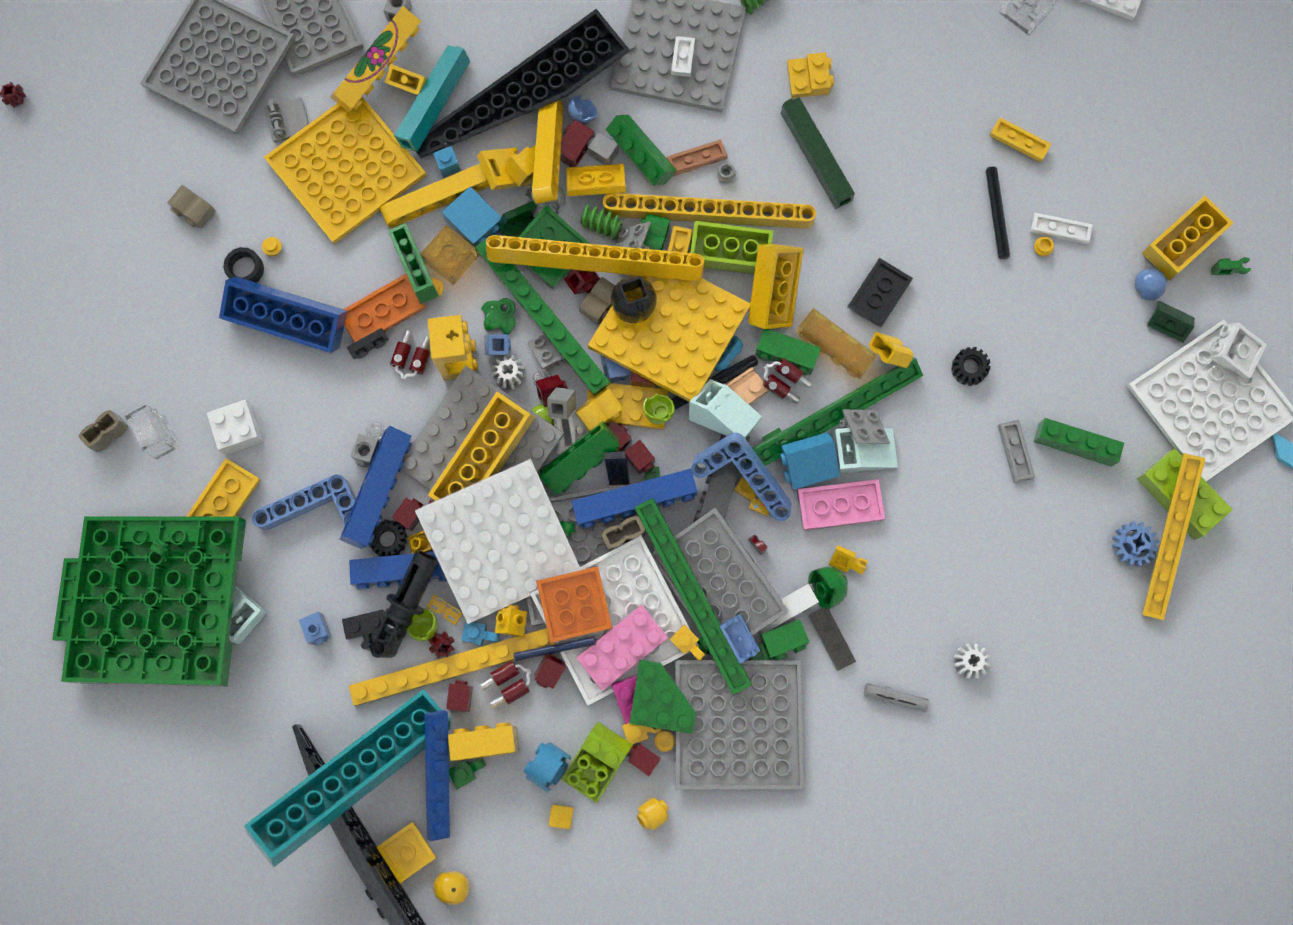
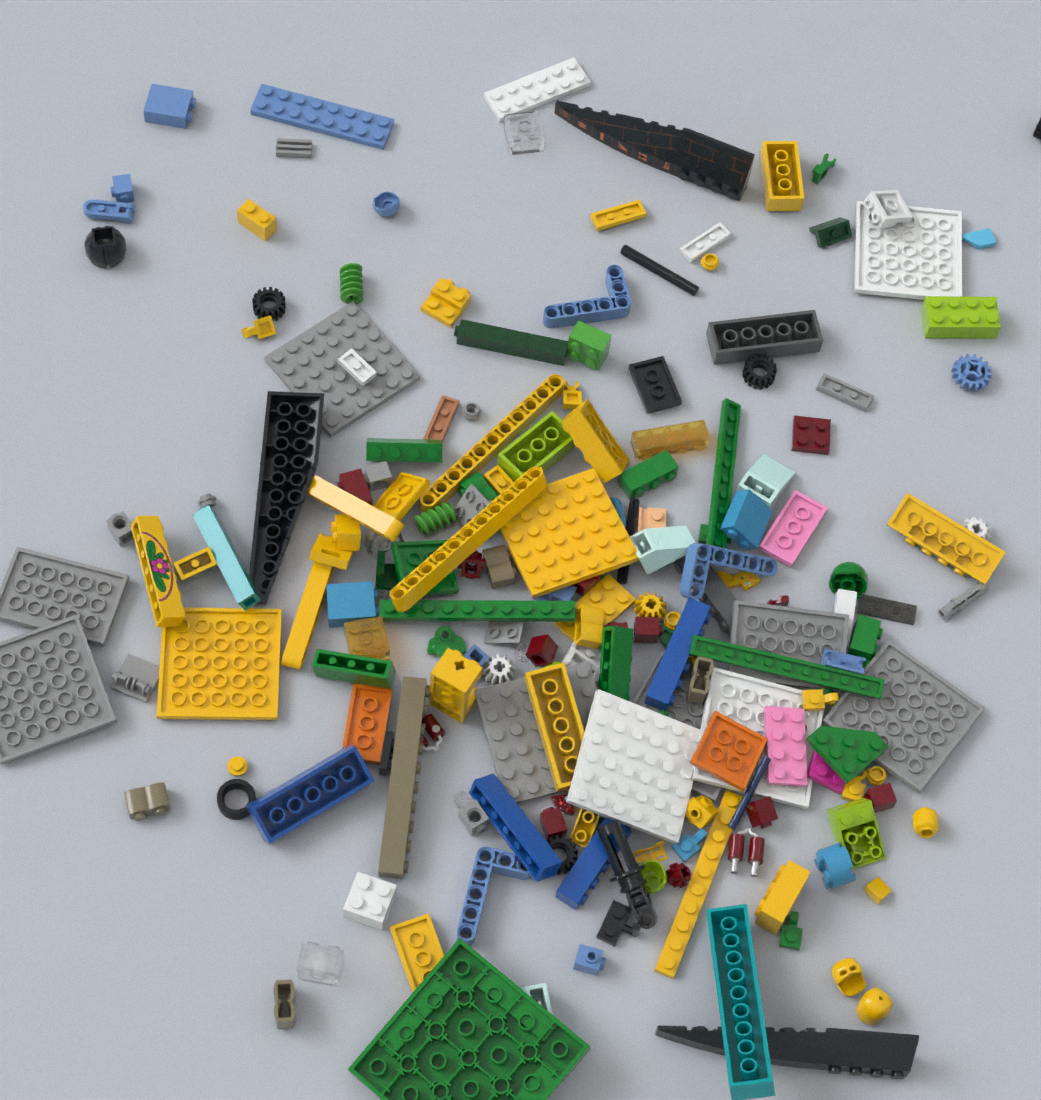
camera: 60 degrees left, 15 degrees down
(160, 548) = (434, 1017): green plate -> none
(349, 373) = (402, 778): none -> dark tan brick
(406, 852) = (821, 1014): yellow plate -> none
(437, 775) = (783, 946): blue plate -> none
(447, 162) = (288, 588): dark azure brick -> none
(459, 696) = (729, 891): dark red brick -> none
(459, 847) = (848, 976): none -> yellow helmet
(473, 47) = (206, 500): none -> light grey plate
(561, 403) = (563, 645): light grey brick -> none
(581, 110) = (333, 466): medium blue hair -> none
(617, 468) = (645, 647): black plate -> none
(636, 309) = (526, 543): black piece -> none
(658, 409) = (622, 587): lime hair -> none
(663, 438) = (657, 606): none -> yellow gear
(669, 468) = (671, 619): none -> yellow plate
(789, 371) = (669, 500): dark red piece -> none
(808, 237) = (571, 396): none -> yellow plate
(845, 560) = (837, 555): yellow plate -> none
(864, 211) = (588, 345): none -> bright green brick
(864, 426) = (750, 465): light grey hinge -> none
(891, 350) = (707, 407): yellow brick -> none
(912, 188) = (577, 308): none -> medium blue beam
(939, 641) = (945, 539): none -> yellow plate
(947, 453) = (811, 435): none -> dark red plate
(1007, 344) = (766, 335): none -> dark grey brick
(1079, 442) = (871, 349): green brick -> none
(1124, 134) = (671, 150): none -> black wedge
(1150, 284) = (793, 222): medium blue hair -> none
(1173, 536) = (987, 343): yellow plate -> none

